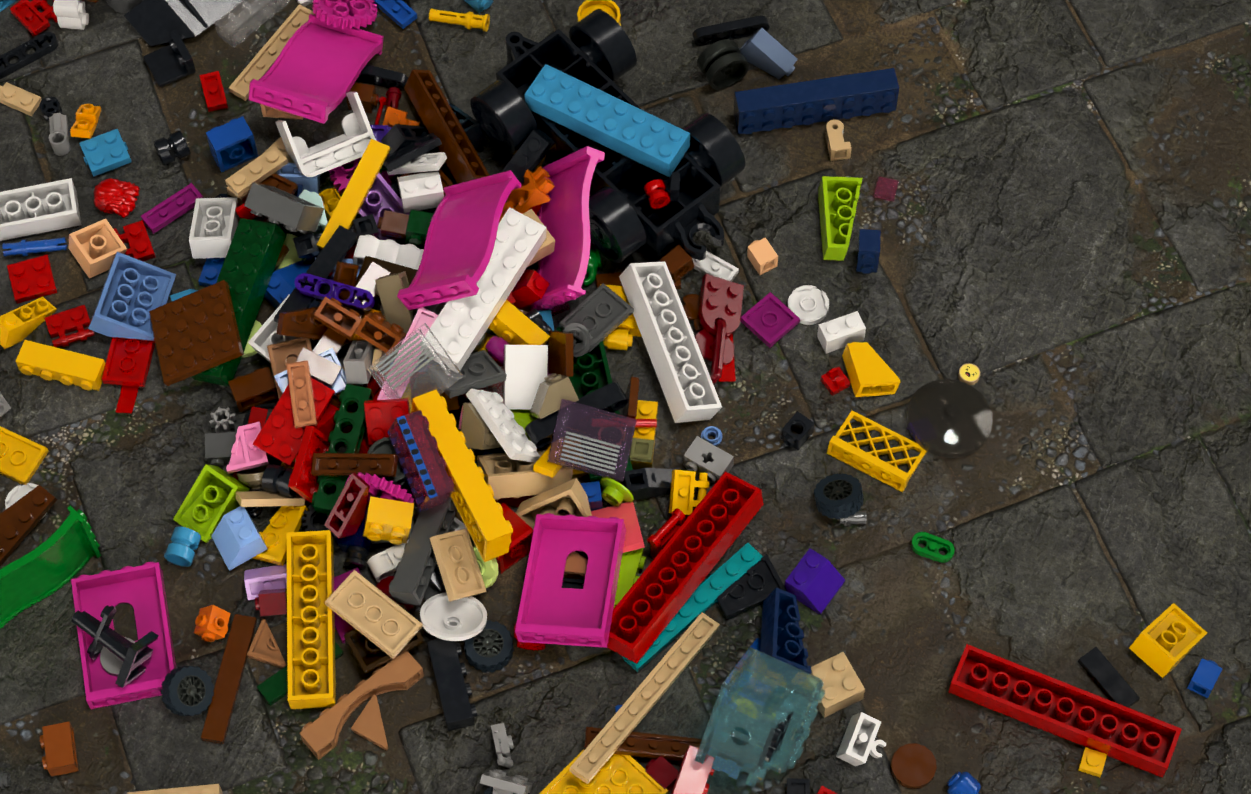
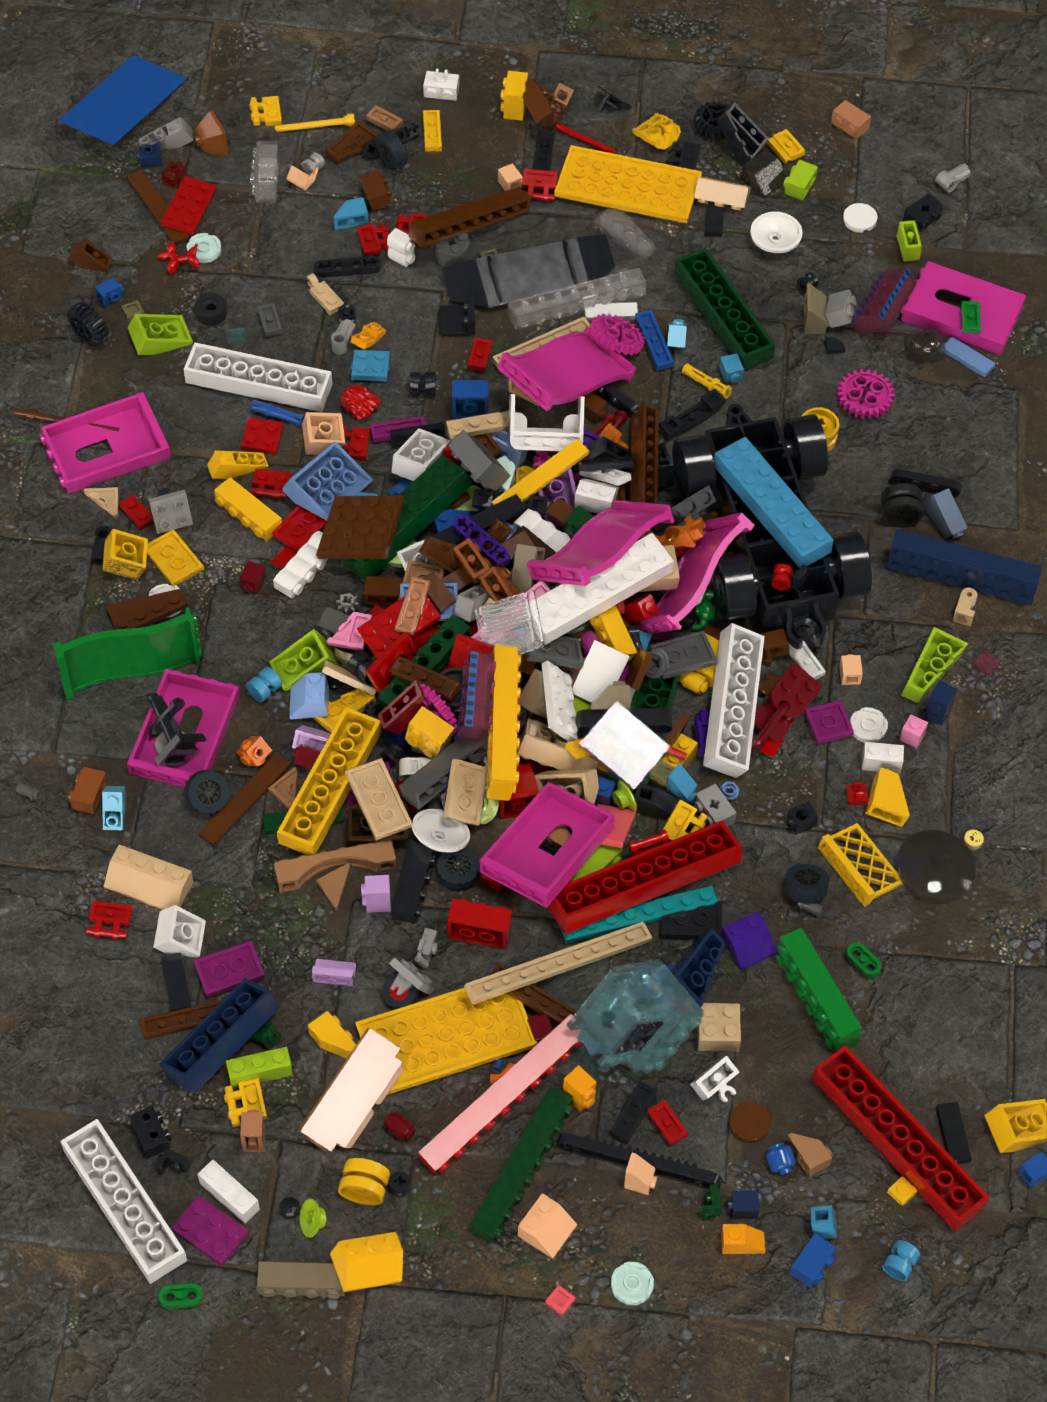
camera: 25 degrees right, 5 degrees down
(96, 754) = (113, 807): none -> medium azure slope
(107, 437) = (252, 577): none -> dark red brick
(152, 403) = (300, 568): none -> white brick
(184, 212) = (401, 435): none -> black tile
(423, 714) = (376, 893): none -> lavender brick
(467, 59) = (693, 416): none -> black slope
(544, 694) = (479, 923): none -> red brick
(653, 388) = (701, 727): none -> dark purple hinge
(666, 453) = (681, 785): none -> dark azure slope
(856, 291) = (913, 731): none -> bright pink brick
(910, 601) = (818, 991): none -> green brick
(988, 769) = (810, 1153): none -> medium nougat slope

